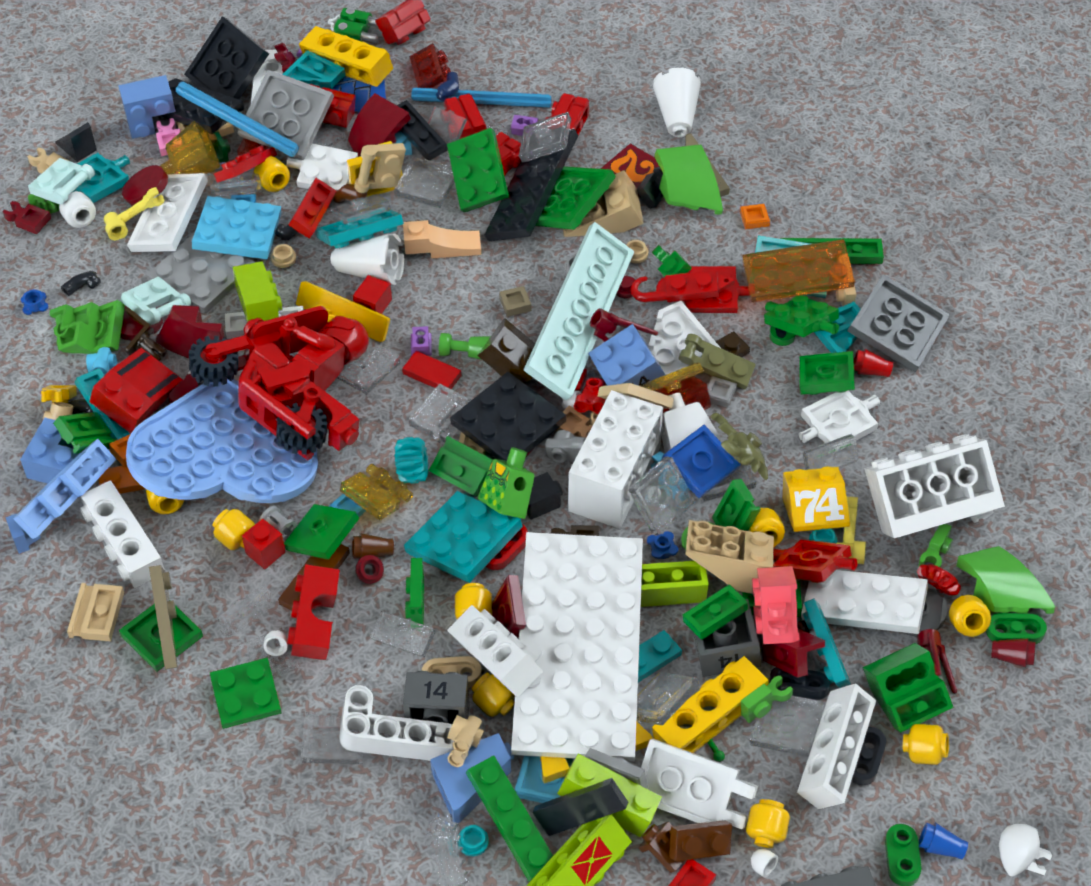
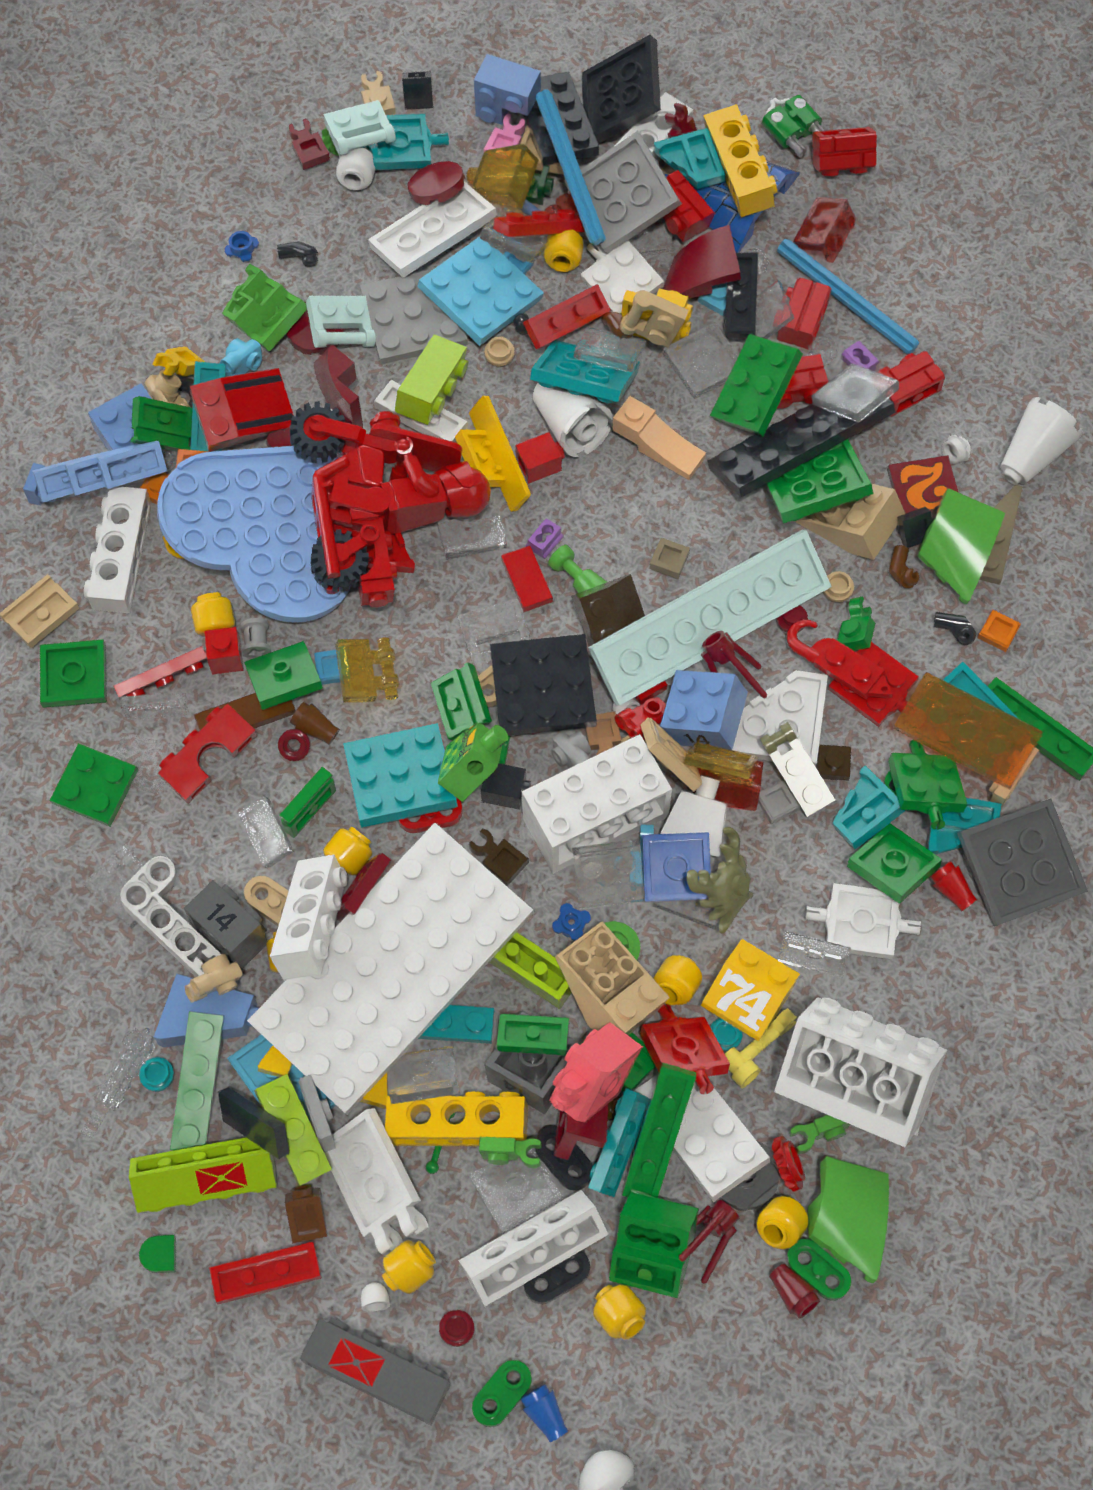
camera: 40 degrees right, 15 degrees up
(116, 224) = (380, 205): light yellow brick -> none
(143, 339) = (295, 357): dark brown bracket -> none
(165, 612) = (87, 643): dark tan wing -> none
(231, 588) = (162, 674): none -> plate
(270, 646) = (152, 756): white hinge -> none
(411, 460) = (418, 662): teal gear -> none
(449, 87) = (819, 264): dark blue arm -> none
(627, 139) = (957, 449): none -> white plate
(671, 222) = (899, 570): none -> reddish brown arm
(700, 840) = (332, 1235): reddish brown plate -> none
(729, 228) = (958, 626): none -> black arm
(736, 507) = (659, 941): green plate -> none
(779, 357) = (866, 809): none -> teal wing
(834, 838) = (456, 1328): none -> dark red plate
(847, 614) = (659, 1131): none -> green plate

